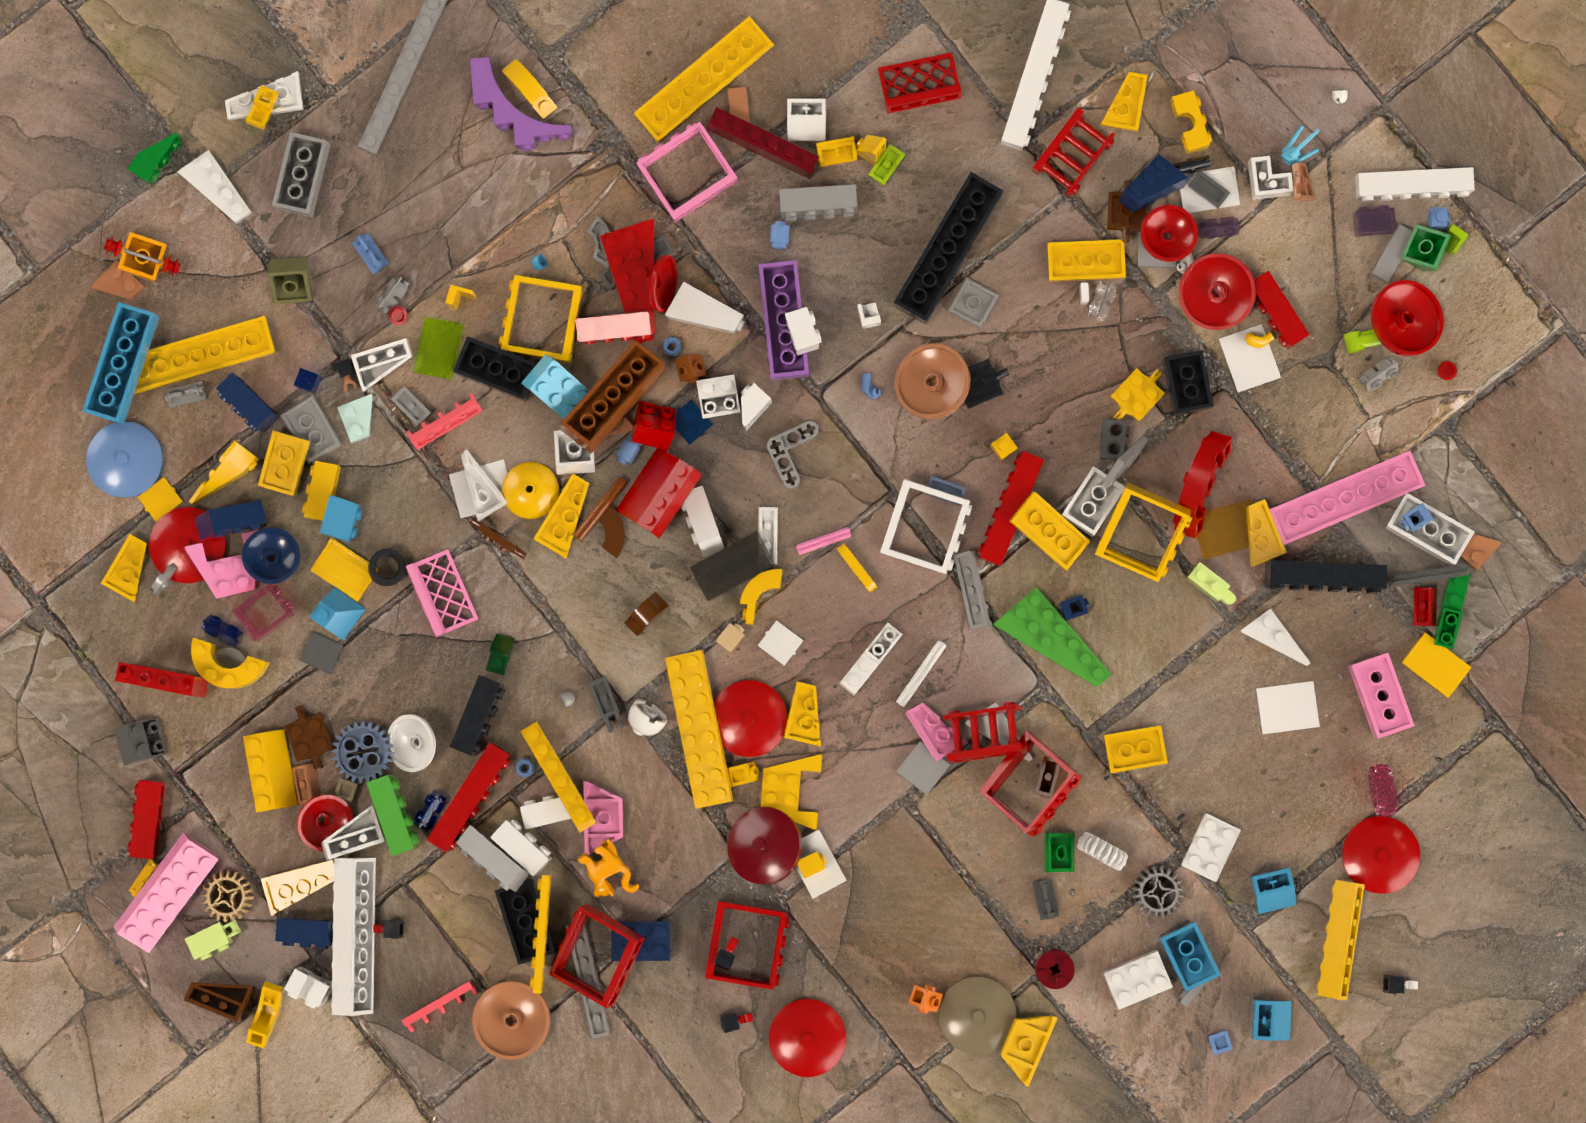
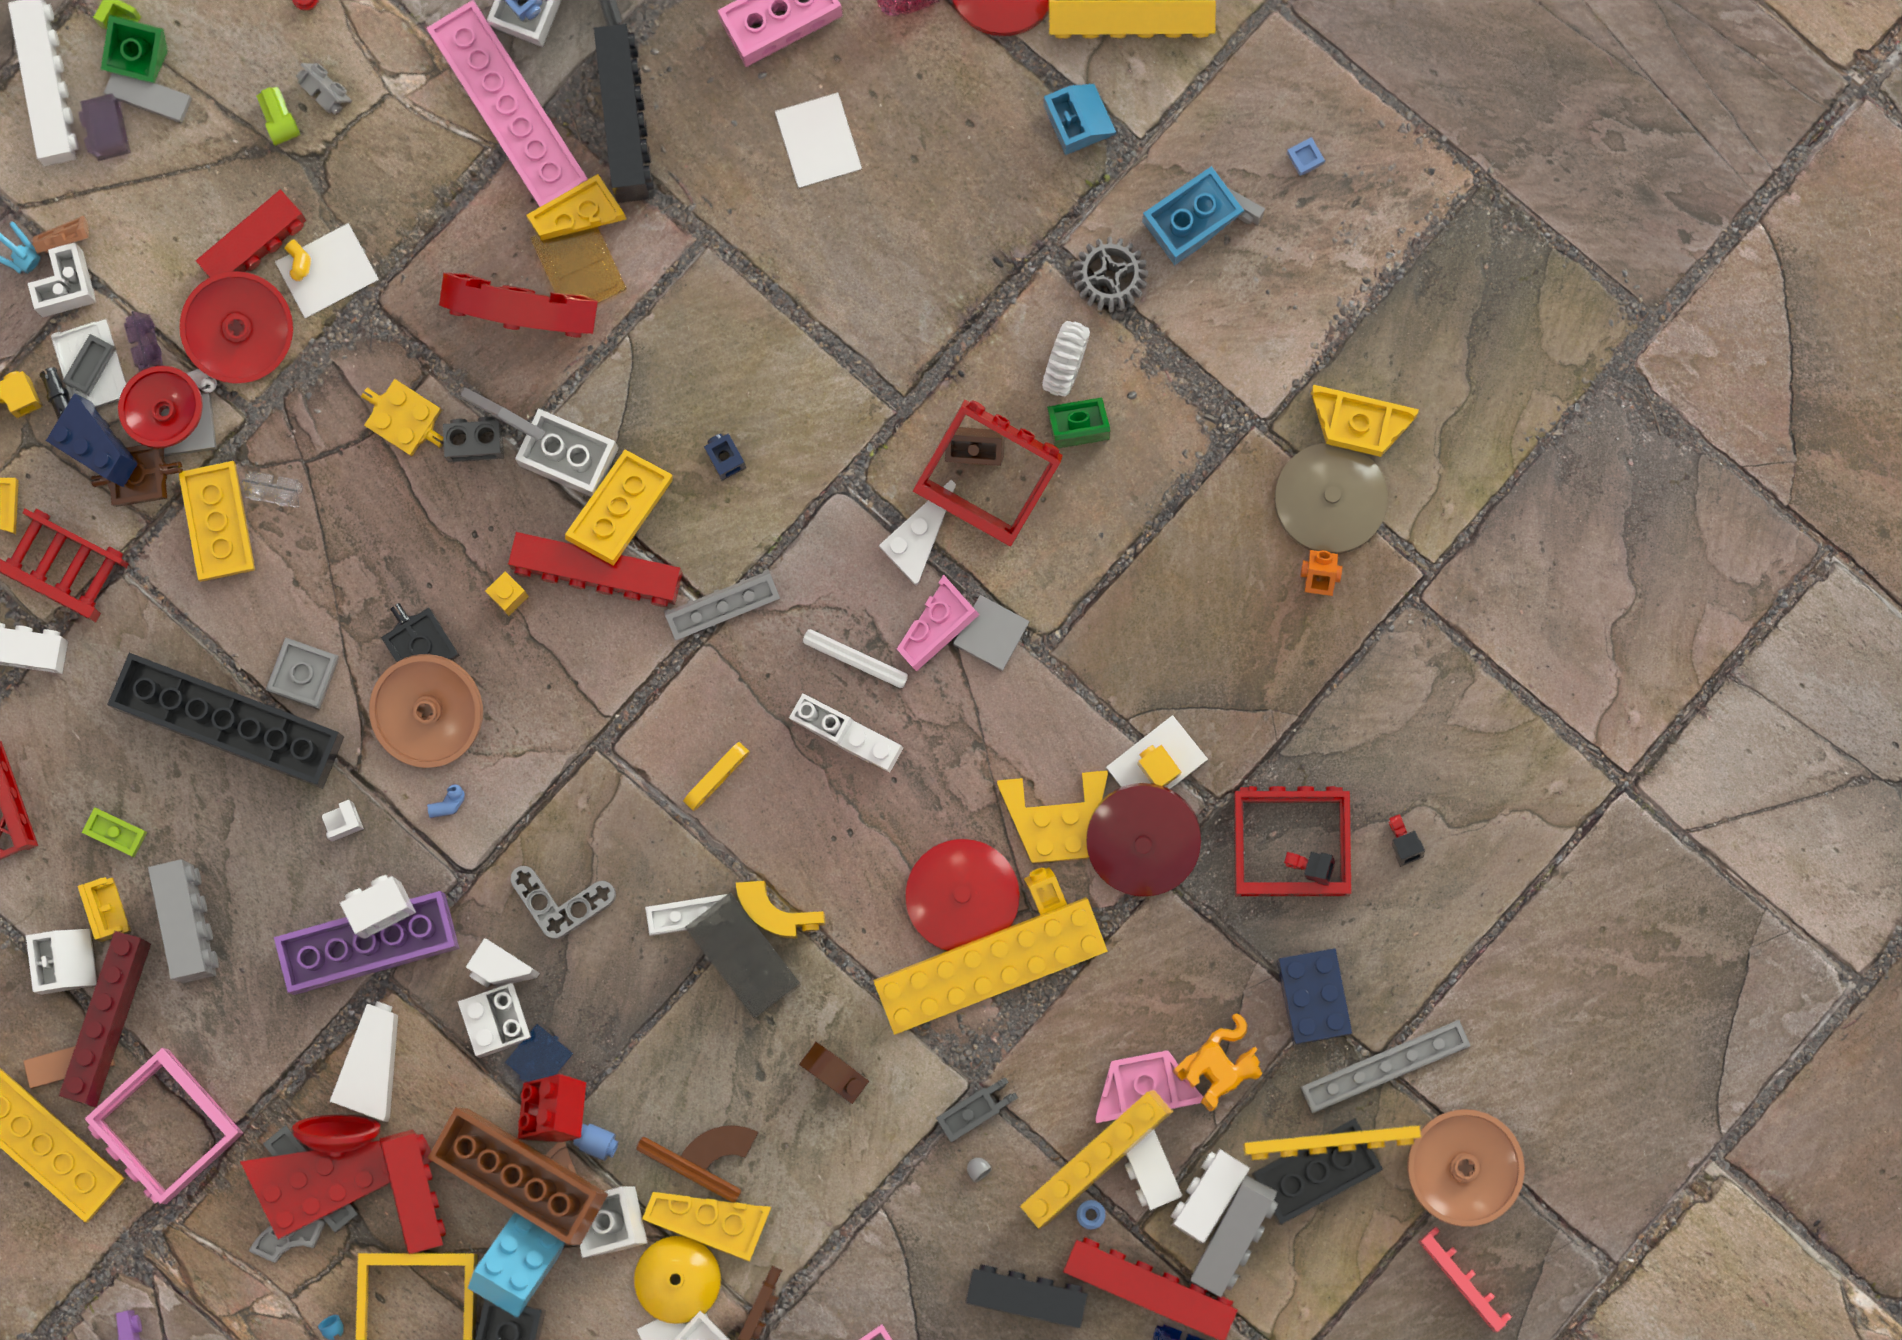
camera: 105 degrees left, 5 degrees down
(500, 654) = (929, 1282): dark green slope -> none
(620, 975) = (1346, 1105): red window -> none
(646, 719) = (989, 1045): white cylinder -> none
(659, 492) = (649, 1084): red slope -> none
(667, 342) = (421, 1101): medium blue plate -> none
(690, 368) = (458, 1069): dark orange brick -> none
(703, 522) = (682, 1013): white wedge -> none
(731, 637) = (847, 941): tan brick -> none
(779, 235) = (241, 972): medium blue brick -> none
(780, 643) = (844, 869): white piece -> none
(803, 715) = (946, 817): yellow wing -> none
(807, 1037) = (1408, 733): red dish -> none
(823, 540) = (684, 831): bright pink axle -> none
(871, 148) = (91, 856): yellow slope -> none
(946, 486) = (583, 667): sand blue plate -> none
(954, 544) = (631, 730): white window -> none
(977, 751) = (947, 530): red fence -> none
(1045, 631) = (765, 491): bright green wing -> none
(1045, 899) = (1148, 429): dark grey hinge -> none
(1058, 979) = (1260, 396): dark red brick -> none
(1084, 293) = (265, 516): white tile -> none
(1131, 563) = (624, 333): yellow window -> none
(1135, 749) = (913, 338): yellow plate -> none
(1137, 979) = (1239, 283): white brick -> none
(1187, 383) = (374, 348): black brick -> none
(1210, 847) = (1034, 213): white plate -> none
(1211, 584) = (659, 271): yellowish green brick -> none
(1271, 632) = (714, 180): white wing -> none
(1271, 1019) = (1261, 93): dark azure slope -> none
(1407, 318) = (237, 60): red dish -> none
(1438, 218) = (87, 37): medium blue brick -> none

